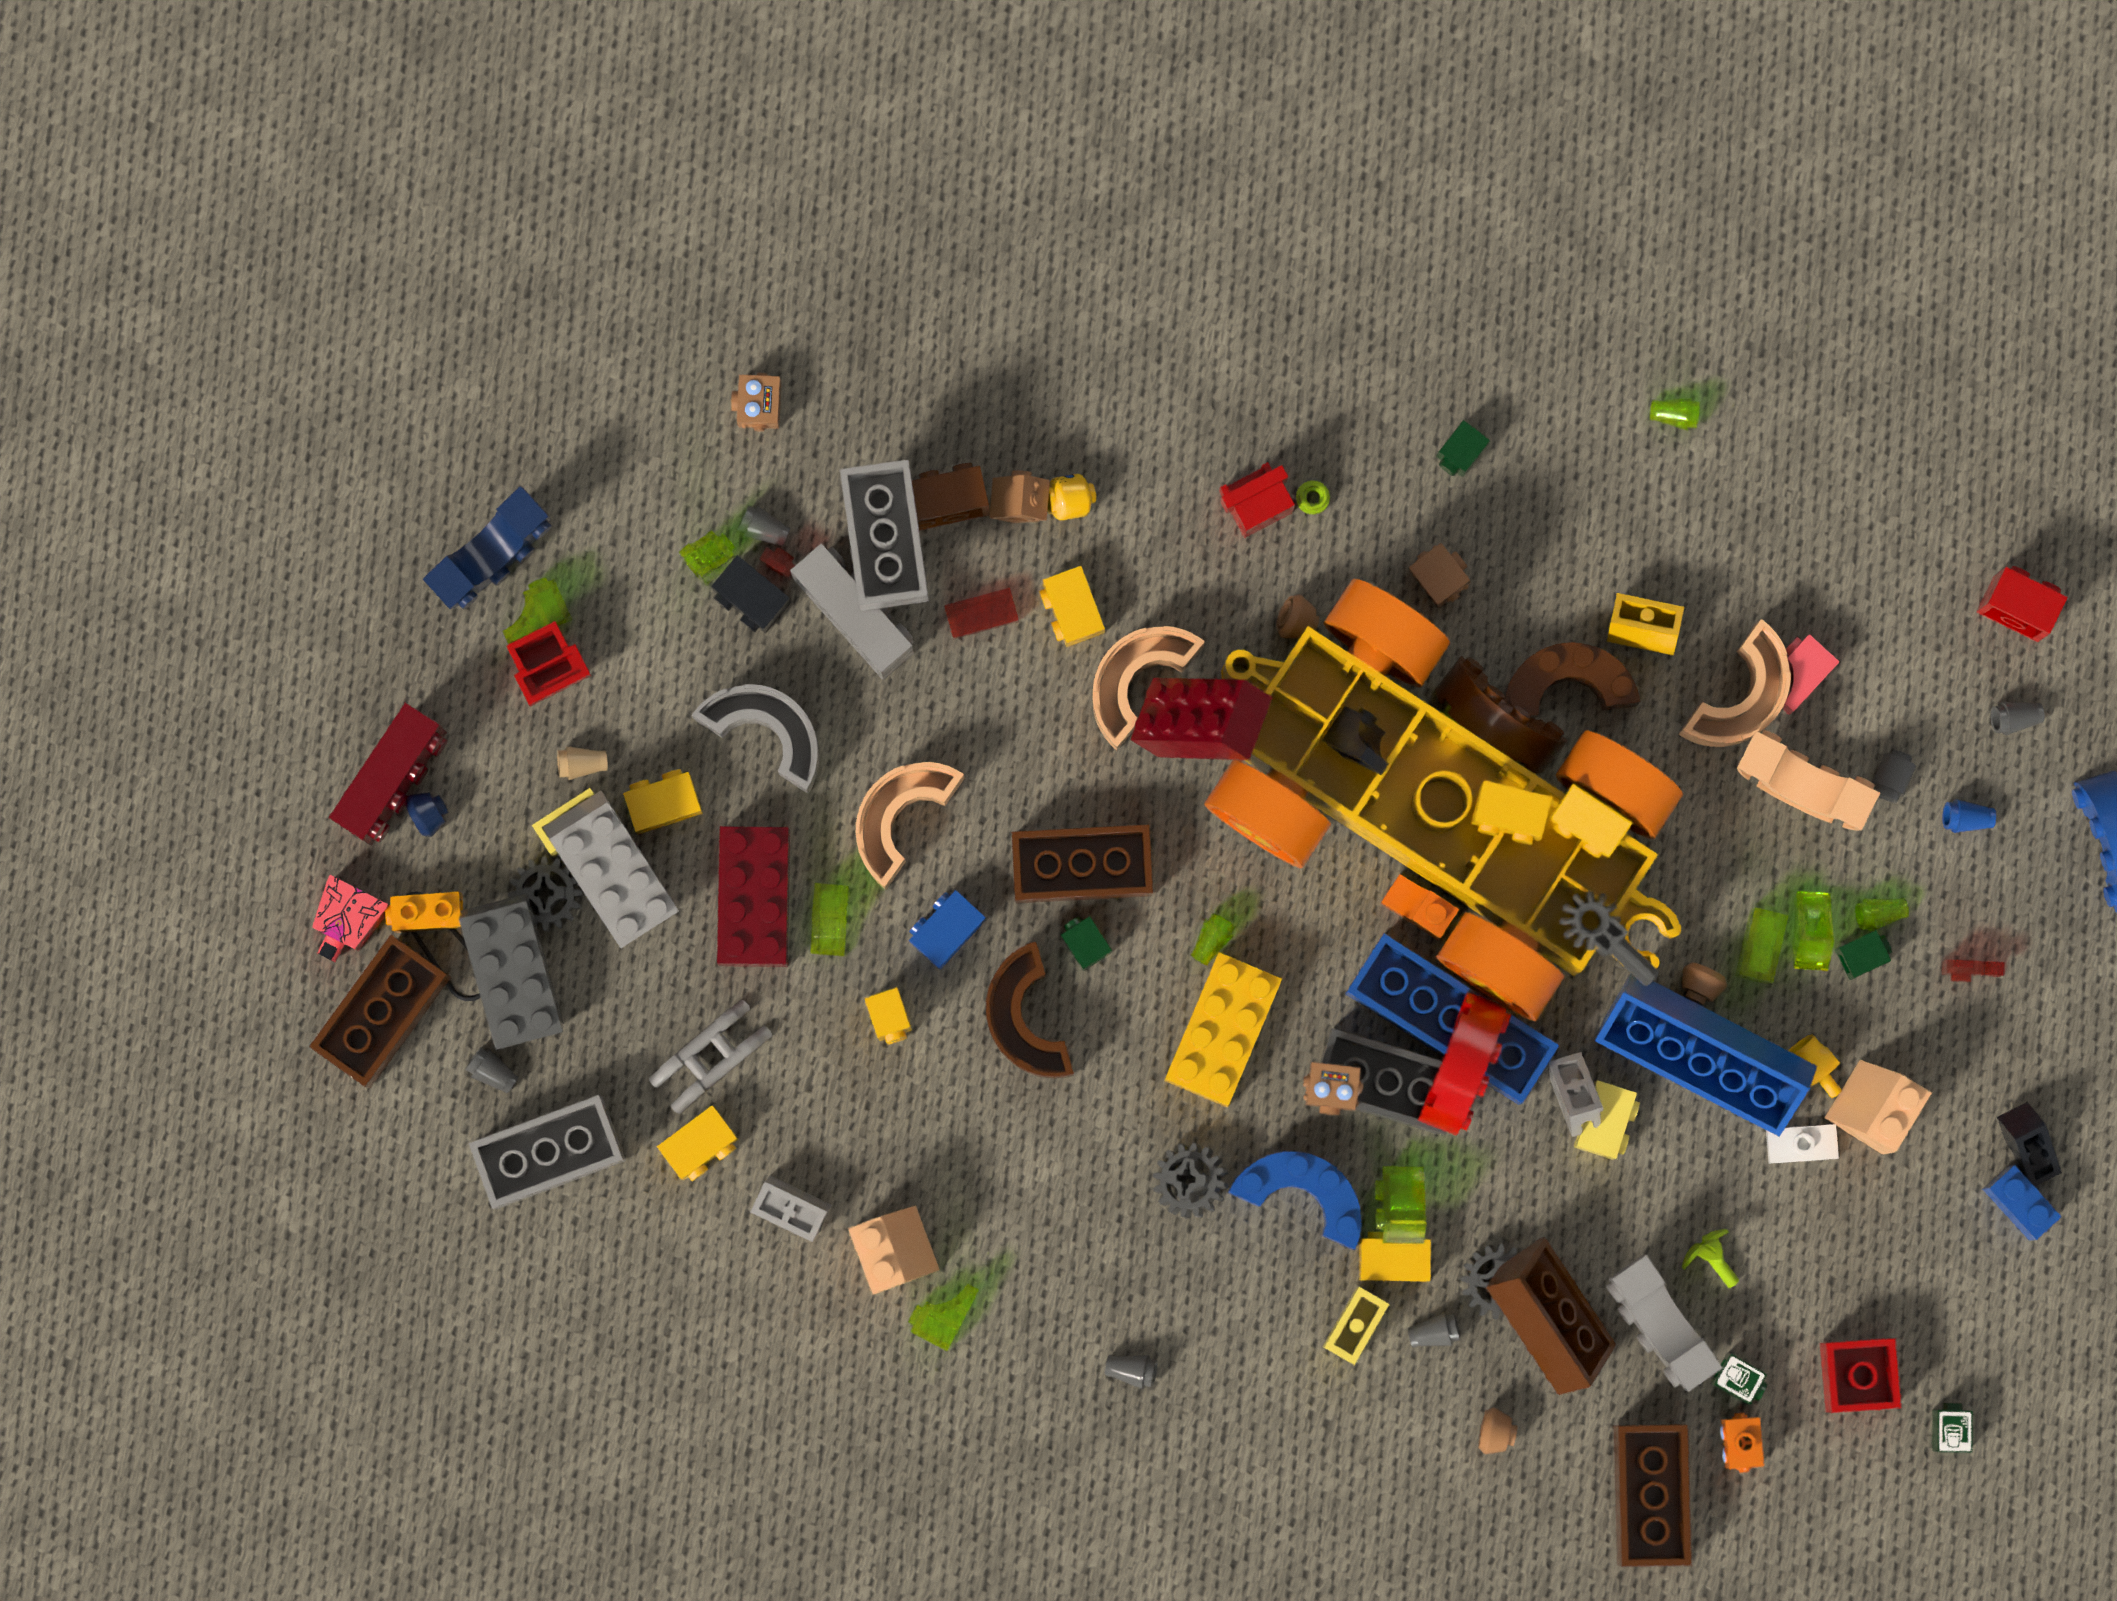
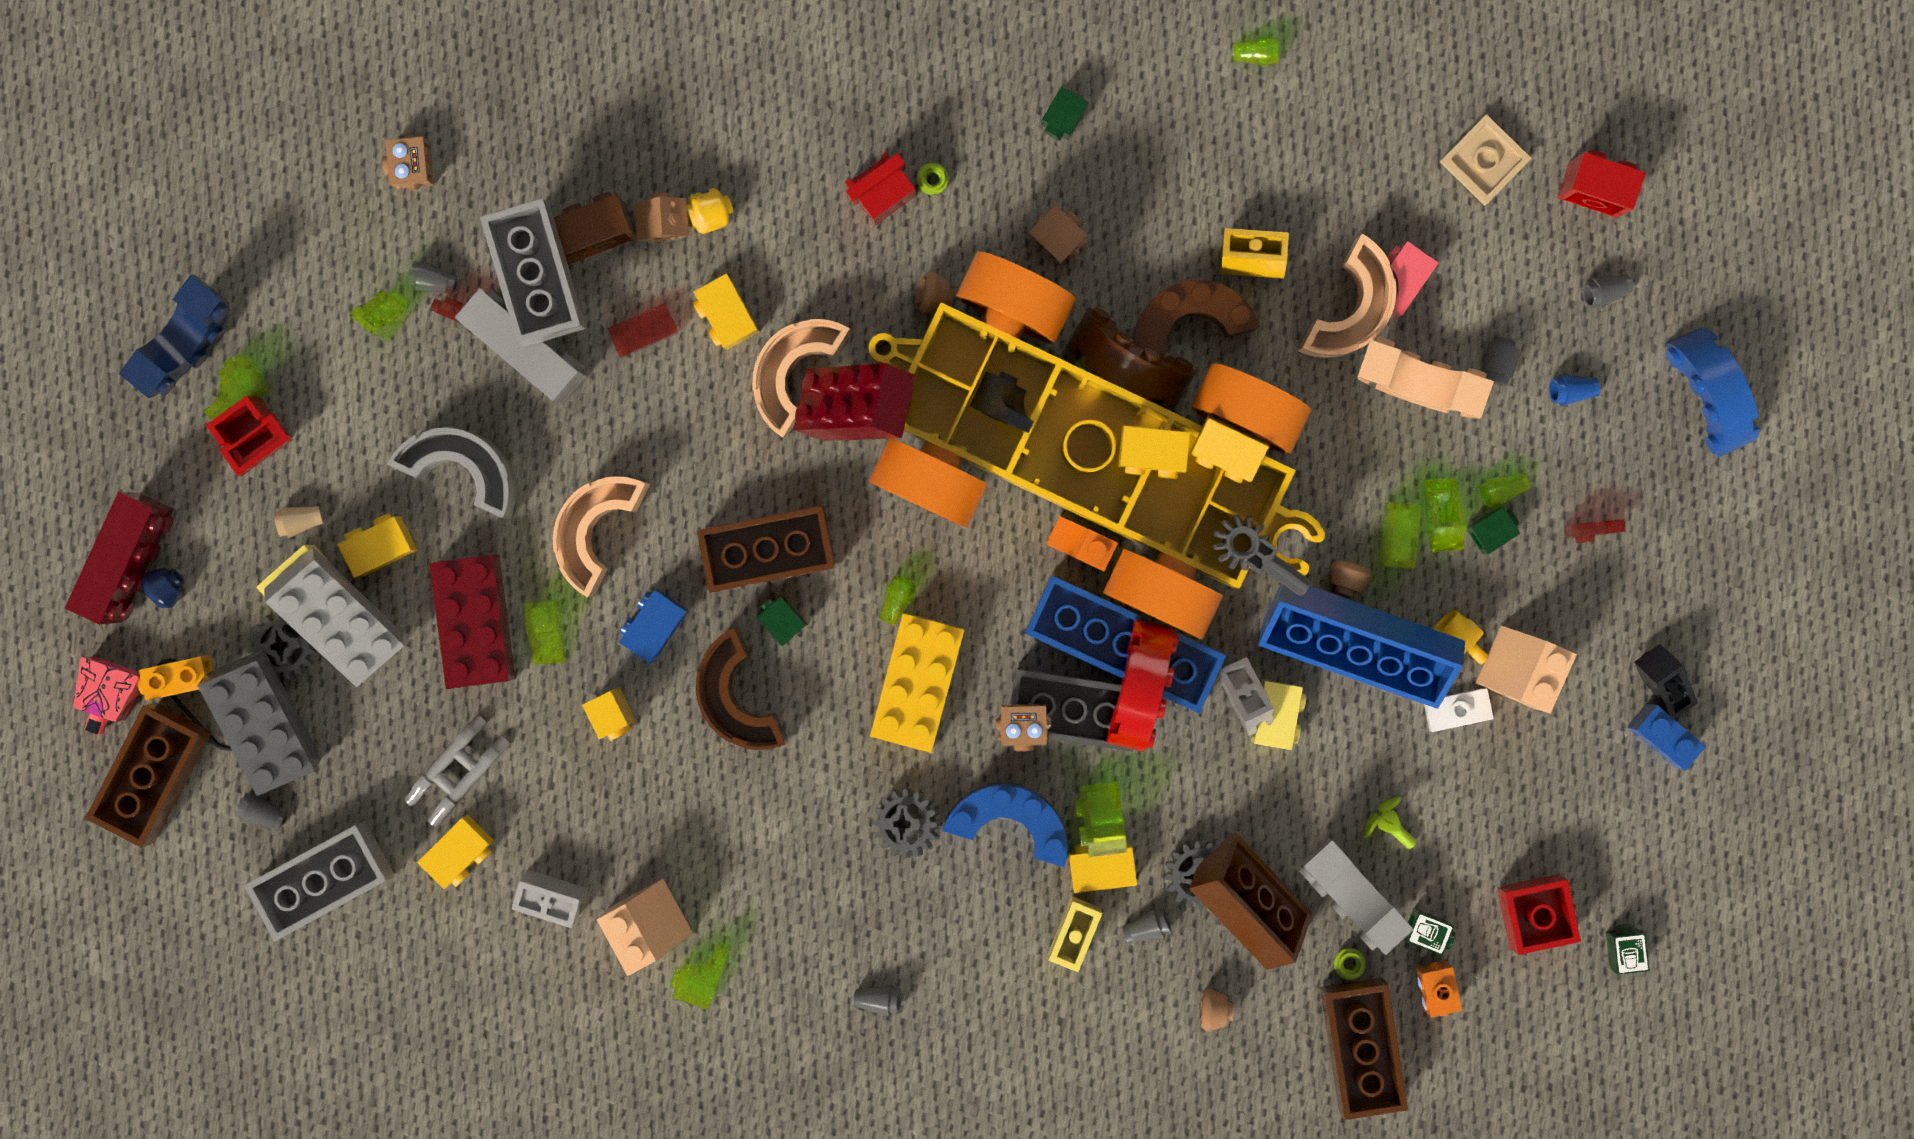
camera: 10 degrees left, 5 degrees up
(750, 595) = (428, 343): black brick -> none
(1657, 1395) = (1357, 970): none -> lime plate
(1904, 561) = (1485, 160): none -> tan plate

